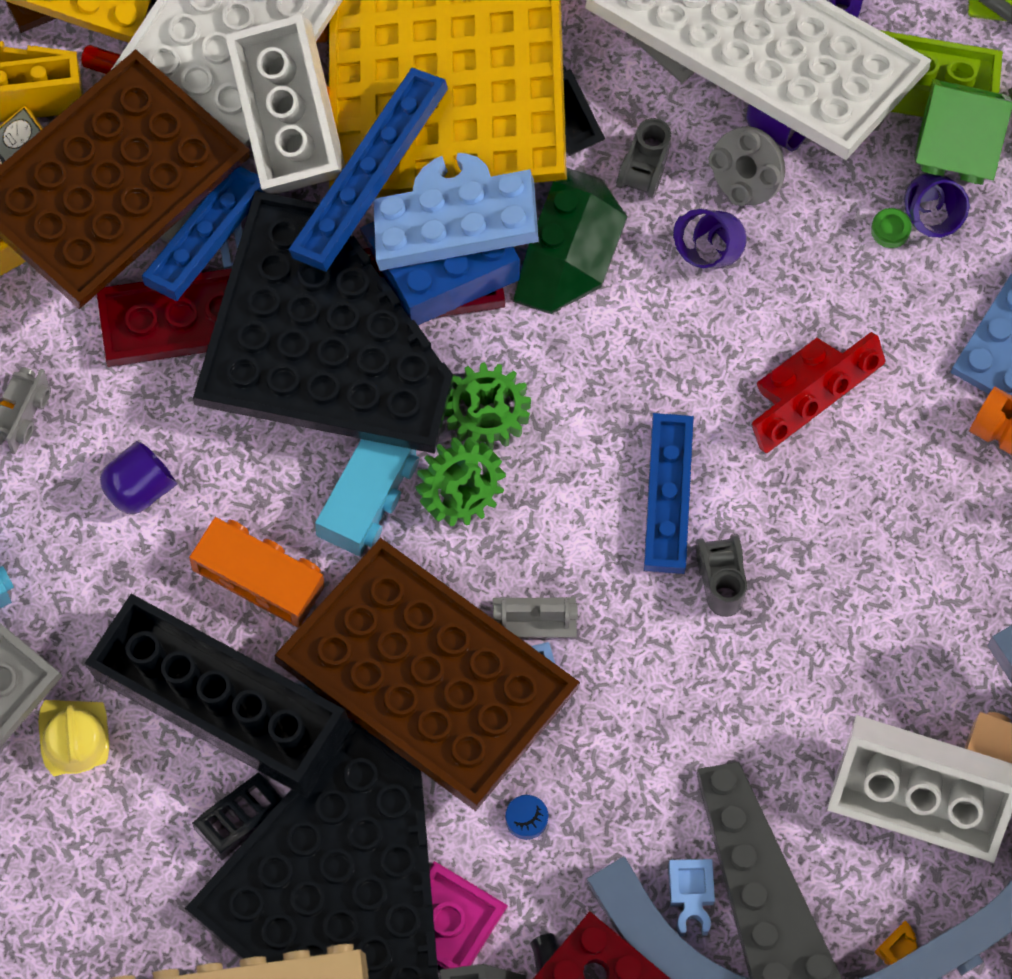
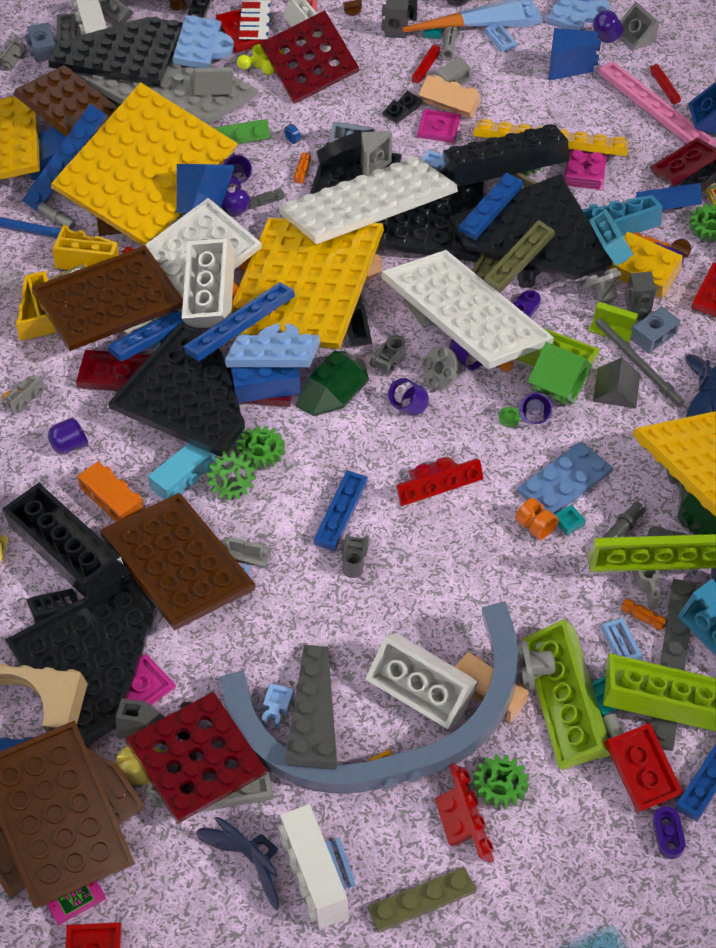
camera: 20 degrees right, 15 degrees down
(526, 817) = (203, 645): blue tile -> none

